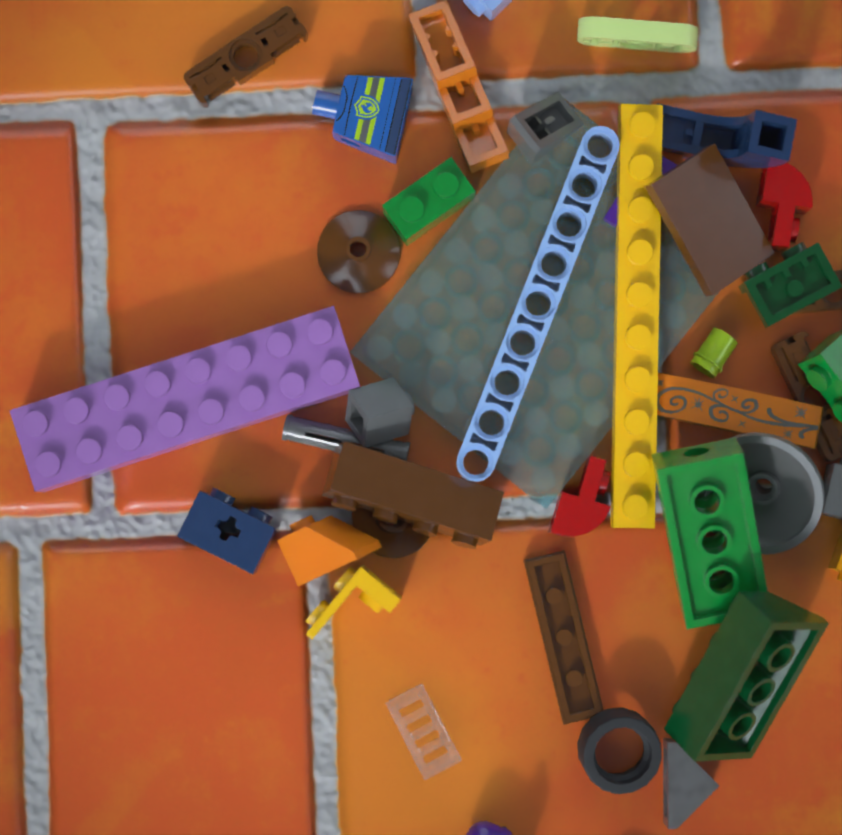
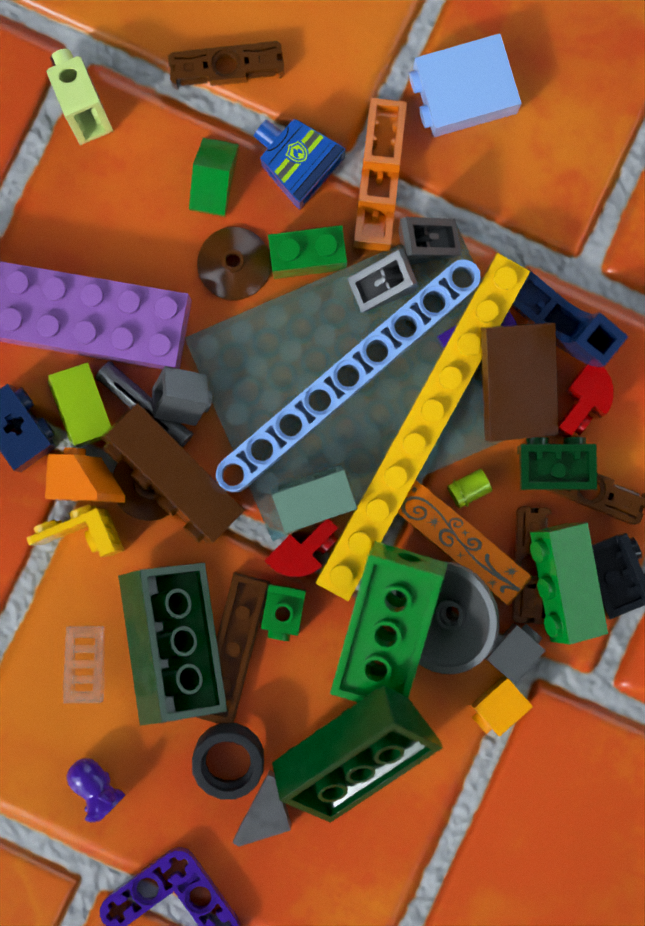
camera: 30 degrees right, 0 degrees up
(115, 165) = (78, 97): none -> yellowish green torso
(281, 475) = (79, 405): none -> lime hinge
(292, 175) = (212, 176): none -> green slope
(502, 663) = (172, 643): none -> dark green slope
(522, 191) = (383, 281): none -> flat silver slope
(567, 444) = (313, 498): none -> sand green hinge
(586, 558) = (286, 597): none -> green brick
(637, 34) = (542, 207): yellowish green beam -> none

